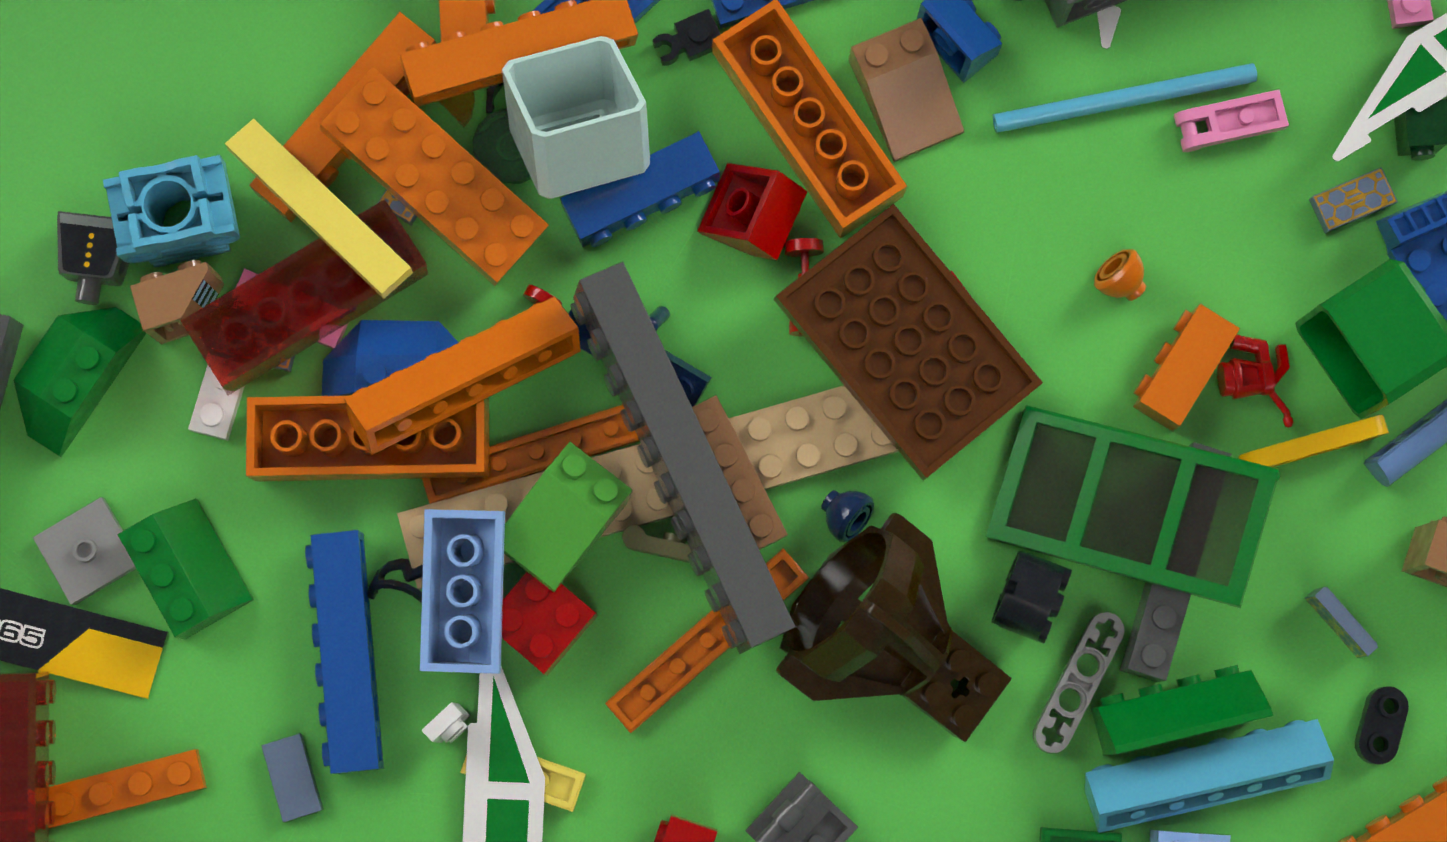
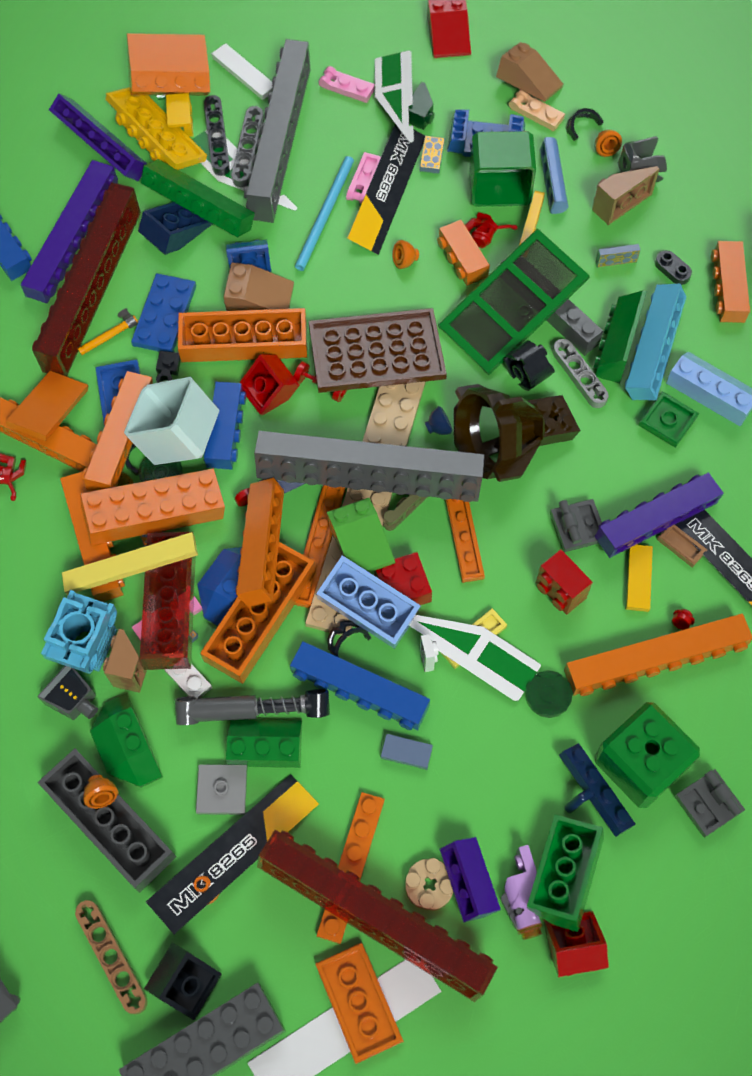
camera: 55 degrees left, 15 degrees down
(169, 439) = (193, 710): none -> piece
(1231, 169) = (386, 190): none -> black sticker

